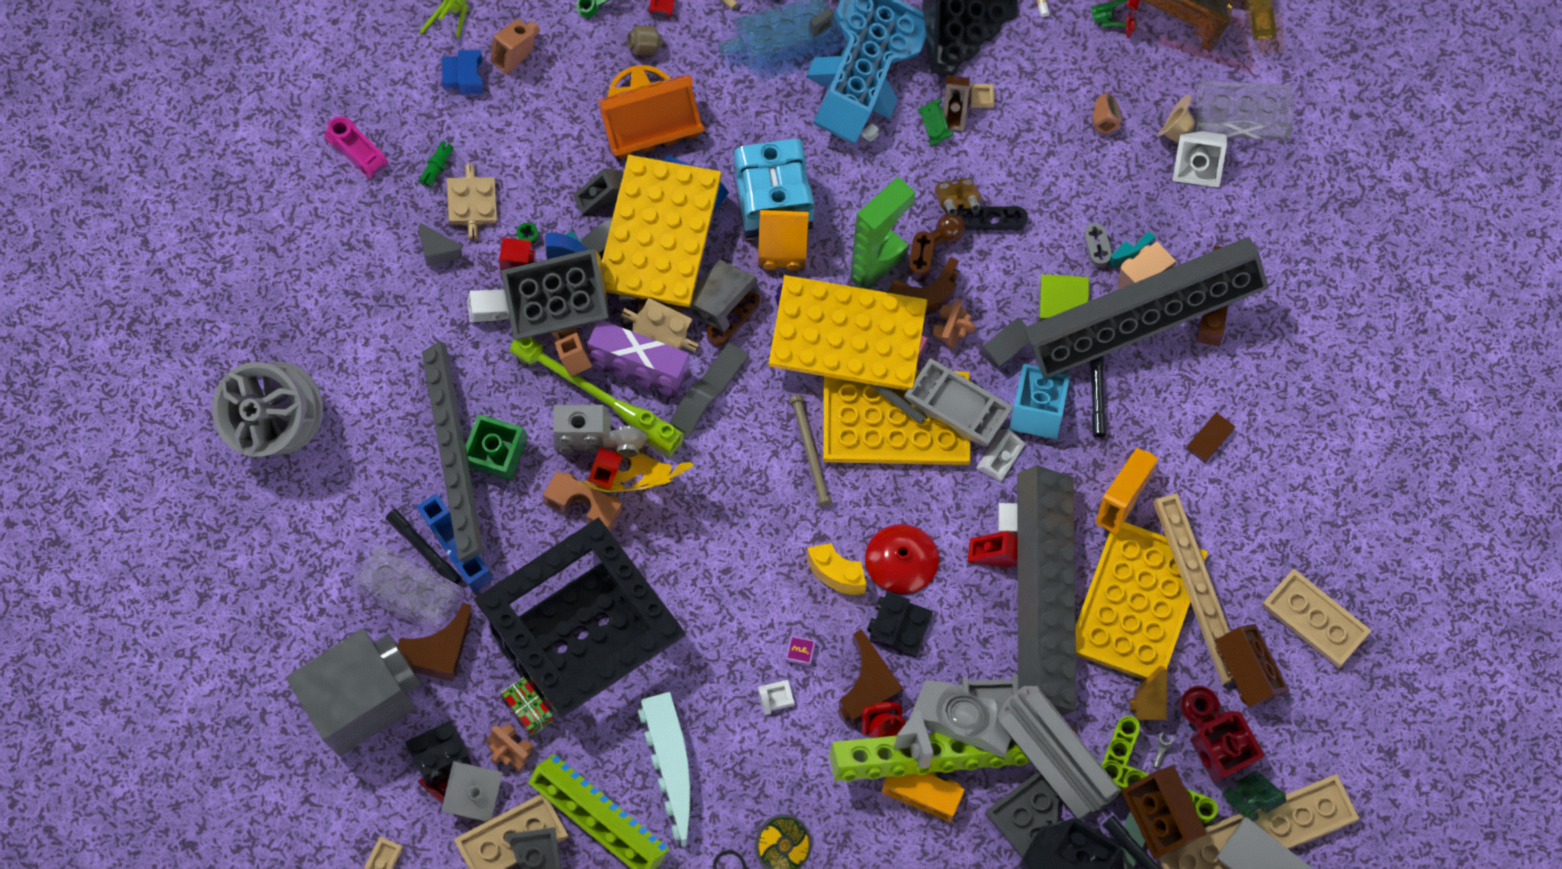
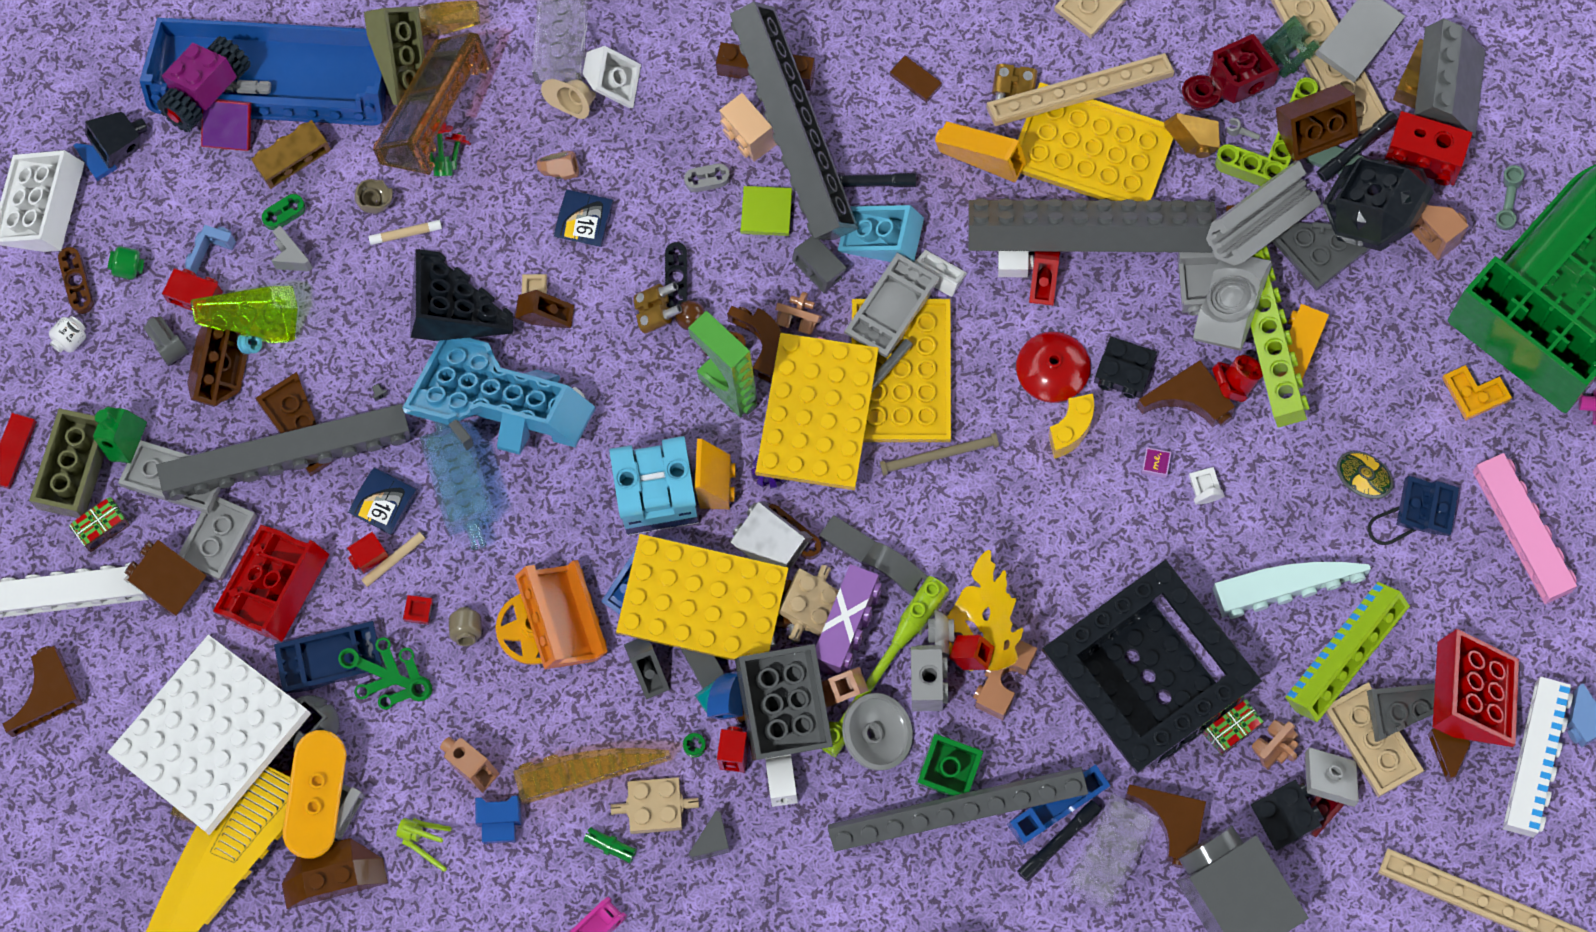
camera: 80 degrees left, 5 degrees up
(505, 135) = (581, 769): none -> clear yellow slope
(525, 401) = (888, 728): none -> light grey dish
(916, 737) = (1261, 338): light grey slope -> none
(935, 122) = (565, 332): green piece -> none
(1052, 136) = (583, 218): none -> slope
(1128, 251) = (717, 147): teal slope -> none
(1208, 527) = (1013, 80): none -> pearl gold piece
(1251, 665) = (1160, 45): reddish brown slope -> none

